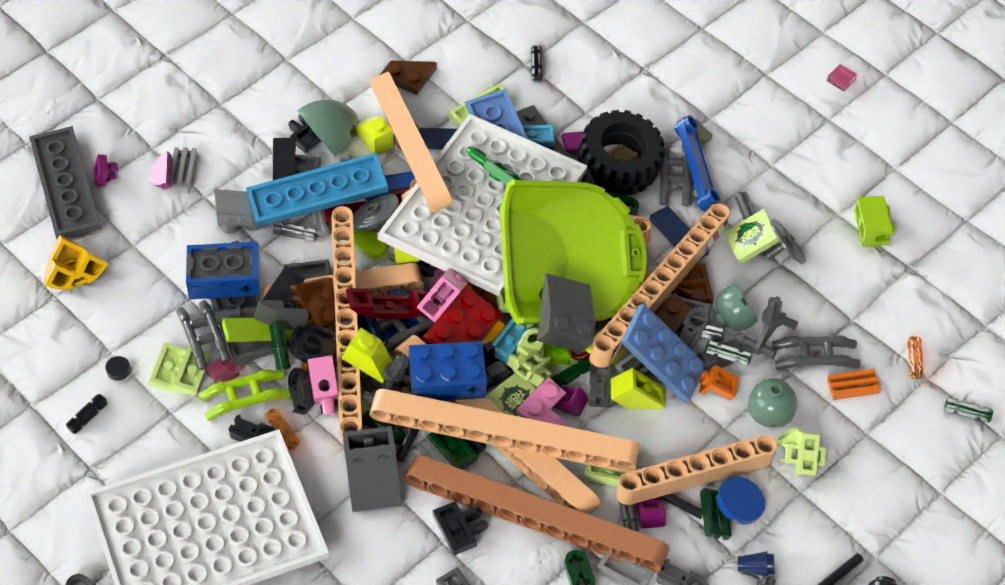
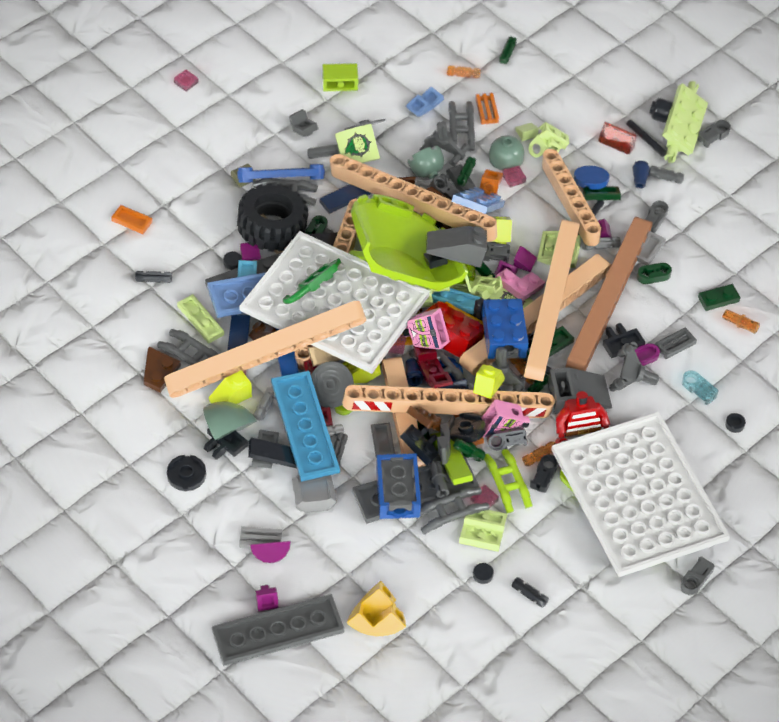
camera: 90 degrees left, 0 degrees up
(272, 103) = (186, 473): none -> black tile
(326, 467) = (580, 417): none -> torso
(402, 530) = (632, 369): none -> dark grey axle
(430, 85) = (187, 341): none -> dark grey piece
(437, 551) = (647, 353): none -> magenta tile
(565, 126) = (231, 260): none -> black tile
(590, 417) = (524, 259): none -> magenta slope
(619, 42) = (131, 219): none -> orange tile
(735, 413) = (514, 176): none -> clear pink tile
(785, 186) = (301, 124): none -> dark grey bracket
(820, 538) = (617, 138): none -> clear red slope
(821, 426) = (527, 131): none -> yellowish green slope
(847, 312) = (426, 102): none -> medium blue slope

